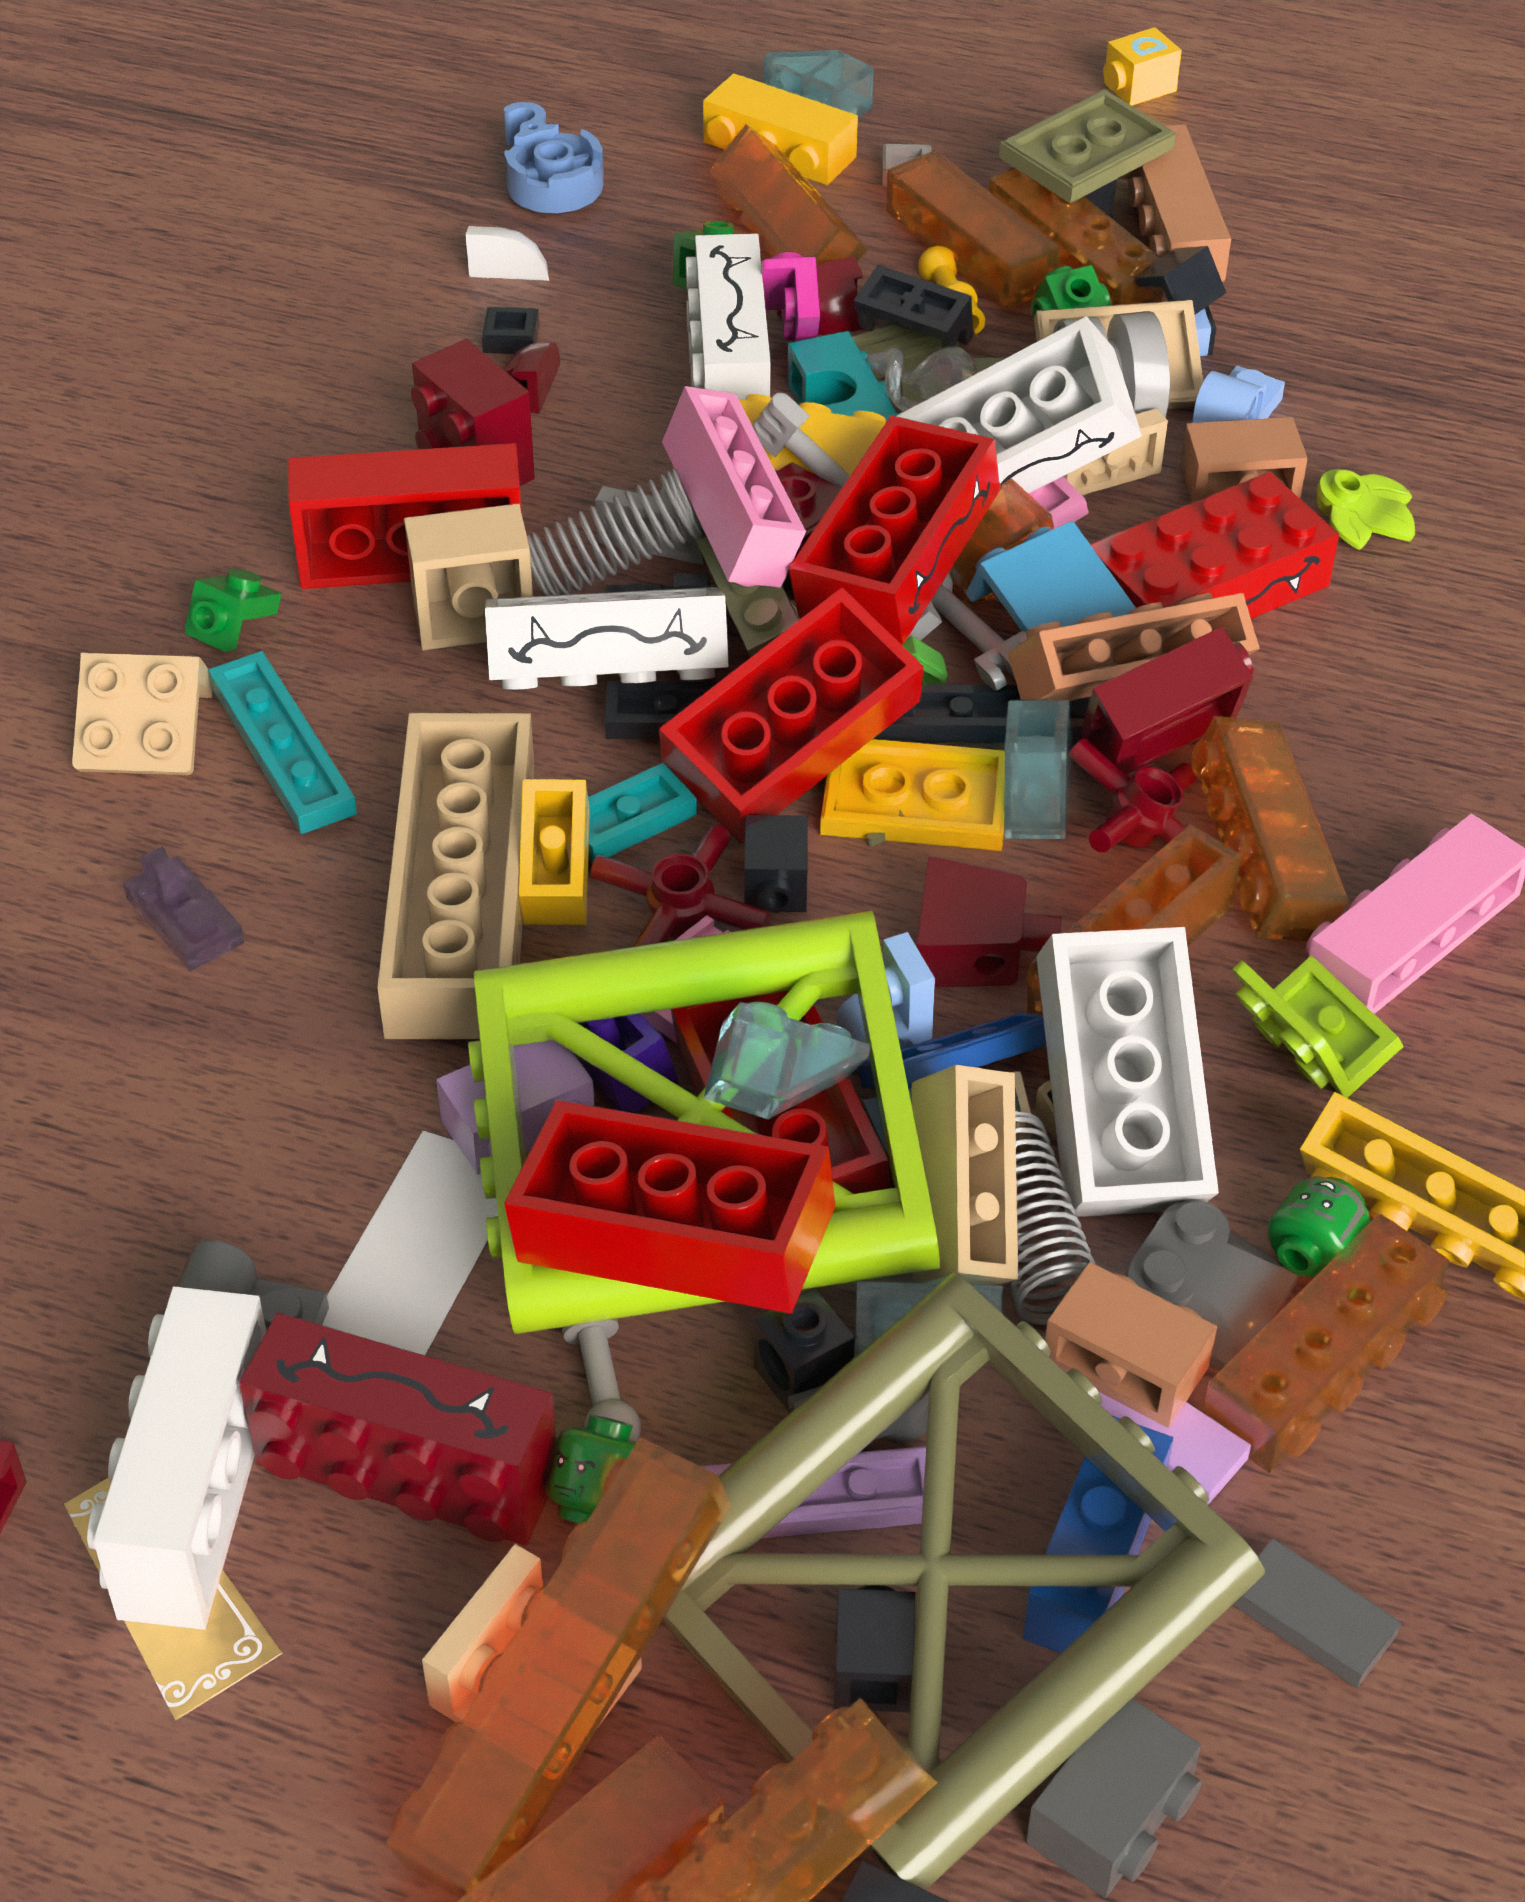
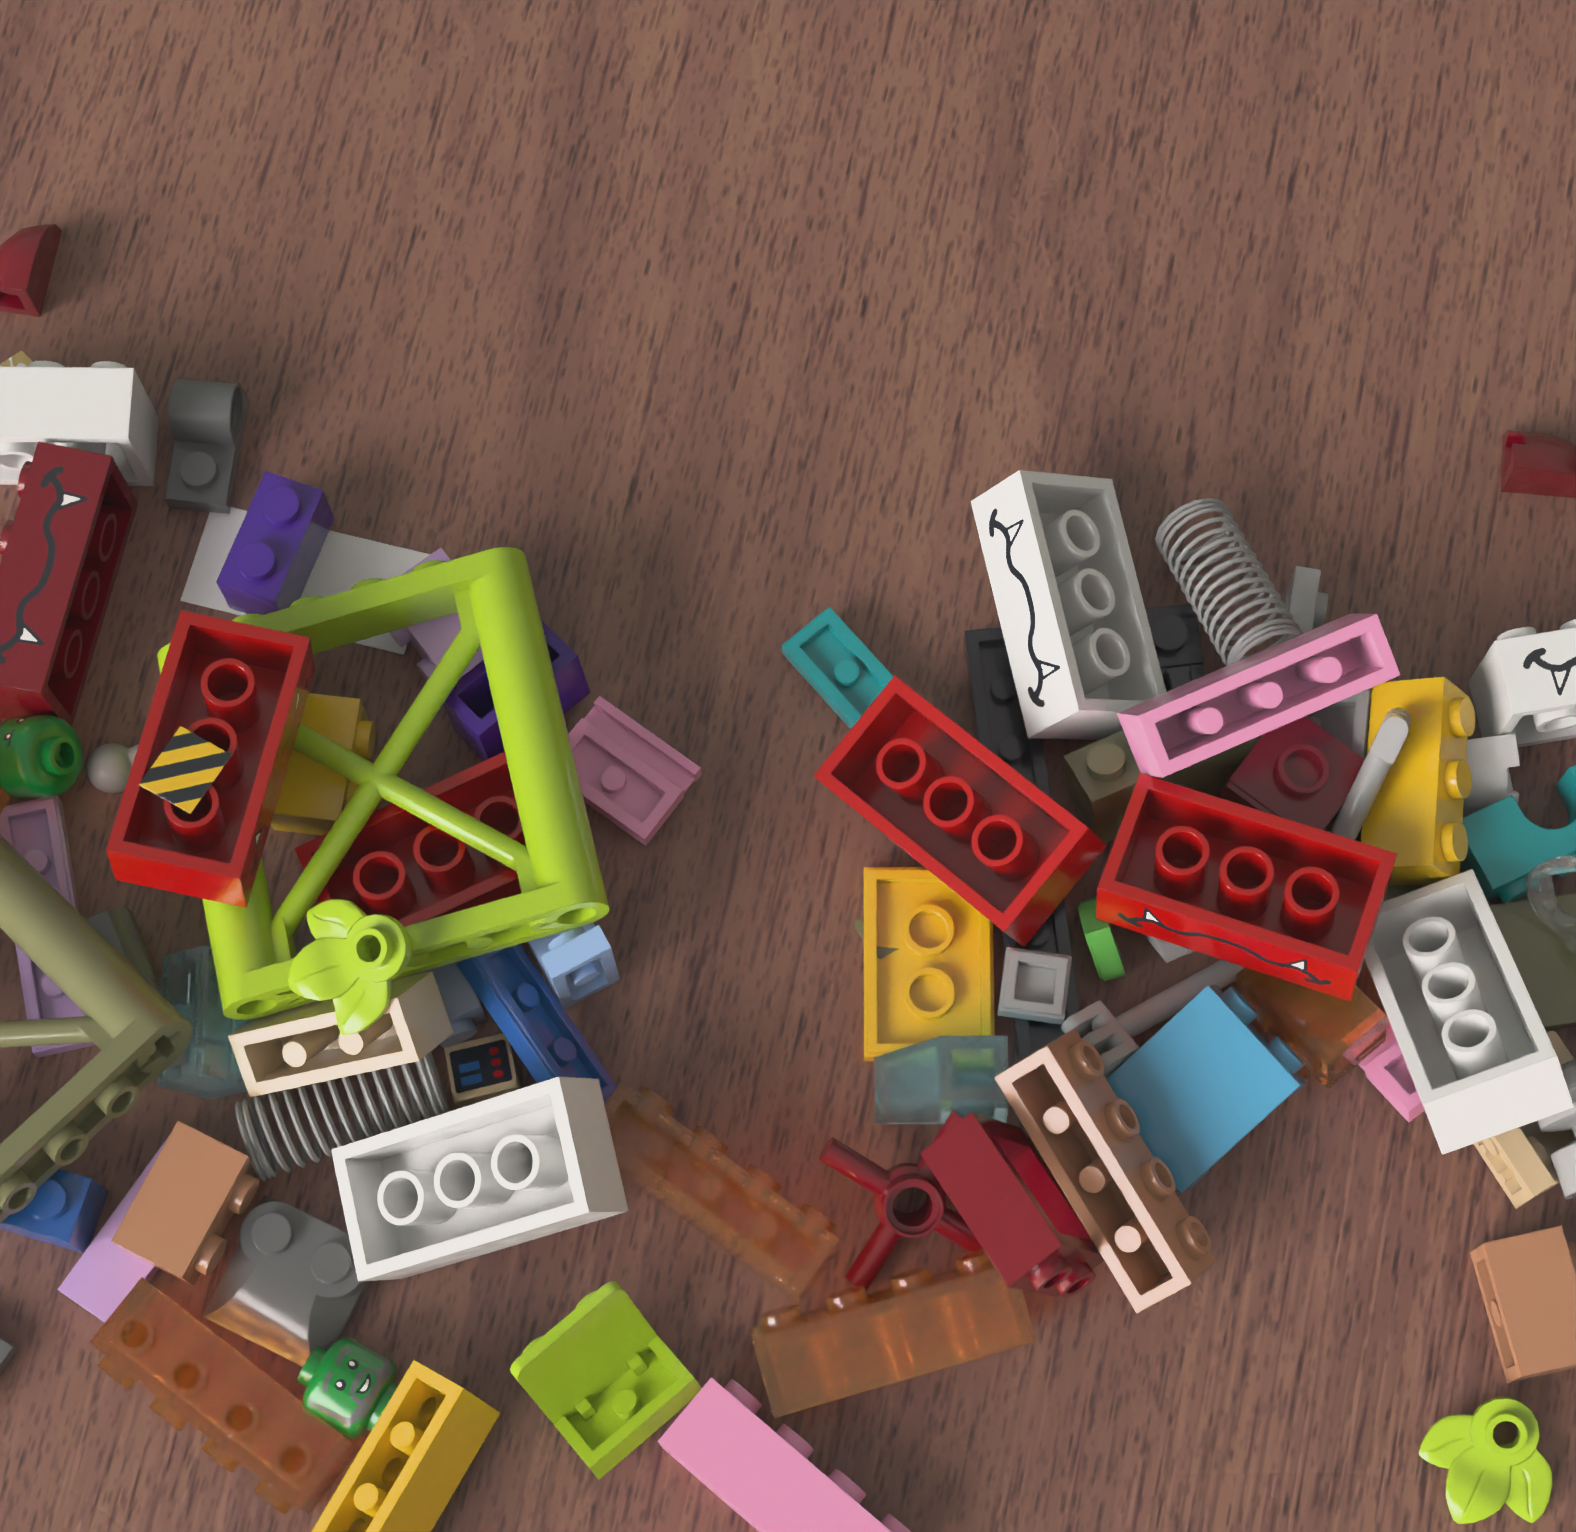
camera: 85 degrees right, 25 degrees up
(138, 713) = (926, 184): tan bracket -> none
(182, 910) = (671, 291): clear purple hinge -> none
(223, 603) = (1099, 236): green bracket -> none
(282, 742) = (904, 326): teal plate -> none
(354, 506) = (1236, 375): red brick -> none
(397, 1235) = (275, 546): none -> dark purple brick
(453, 870) = (721, 523): tan brick -> none
(461, 563) = (1144, 444): tan brick -> none
(471, 402) = (1407, 412): dark red brick -> none
(554, 852) = (743, 605): yellow brick -> none
(681, 890) = (726, 716): dark red bar -> none
(697, 1190) = (185, 769): none -> sticker
(776, 862) = (783, 827): black brick -> none
(776, 1062) = (408, 839): clear light blue slope -> none
(801, 1347) = (170, 919): black brick -> none
(914, 1109) = (341, 963): none -> lime plate
(954, 702) = (1034, 985): none -> light grey tile
(977, 925) = (721, 1034): dark red torso -> none
(1233, 542) = (1326, 1265): red brick -> none

